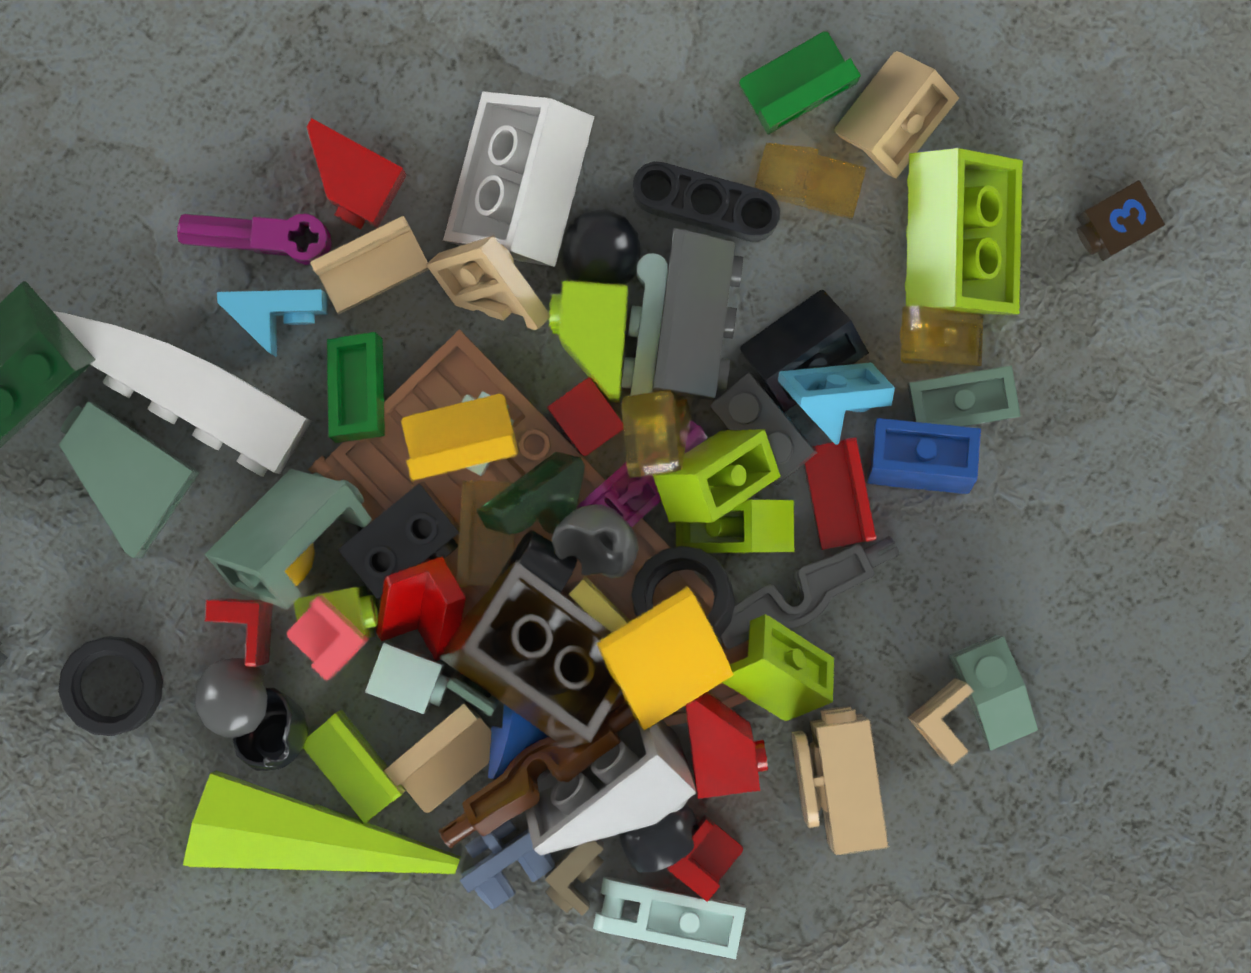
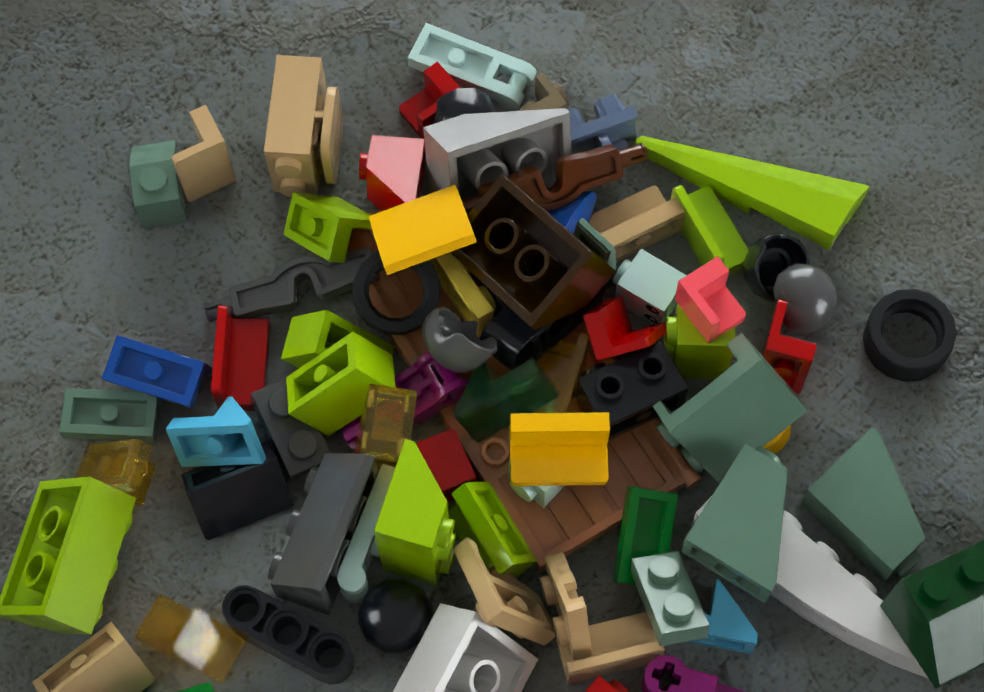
camera: 170 degrees left, 20 degrees down
(250, 411) = (743, 523): none -> sand green slope
(315, 317) = (669, 598): none -> sand green plate
(412, 269) = (572, 623): none -> tan wing
(519, 355) = (487, 522): none -> lime panel

